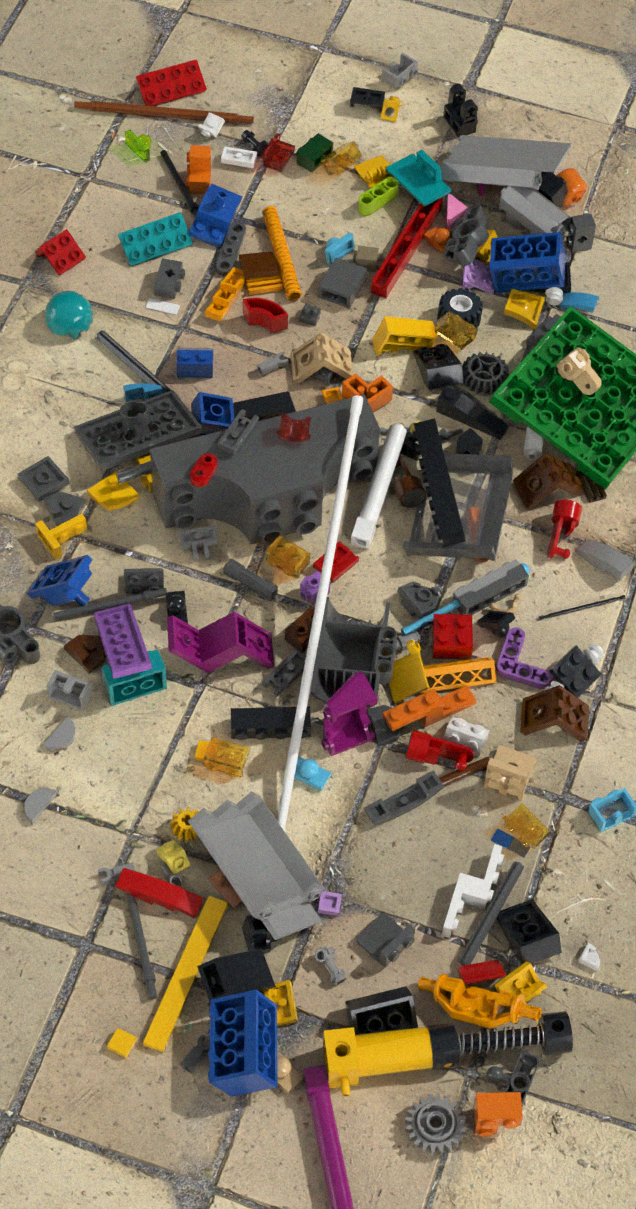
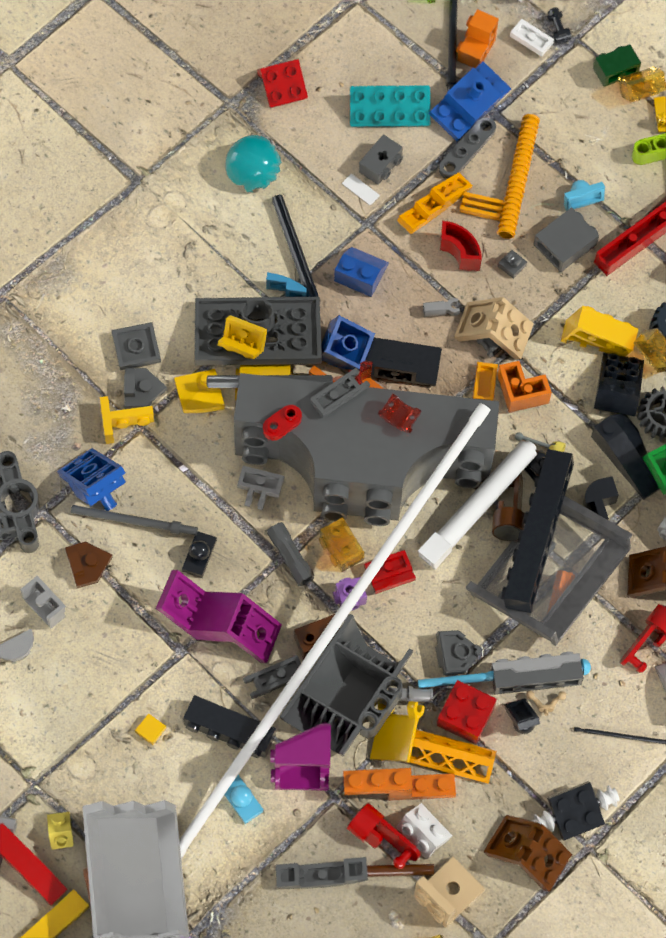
camera: 25 degrees right, 10 degrees up
(122, 641) = (119, 572): medium lavender tile -> none
(133, 432) = (243, 337): none -> yellow bracket
(137, 684) = (114, 616): teal brick -> none
(143, 579) = (181, 508): dark grey bracket -> none
(171, 877) = (48, 851): light grey hand -> none
(179, 825) = (88, 794): yellow gear -> none
(226, 757) = (164, 745): clear yellow bracket -> none
(258, 265) = (486, 181): reddish brown tile -> none
(277, 154) = (575, 50): clear red bracket -> none
(366, 257) = (607, 220): dark tan brick -> none
(379, 726) = (337, 785): dark grey plate -> none
(445, 436) = (583, 470): dark grey hand -> none
(512, 662) = (517, 767): medium lavender beam -> none

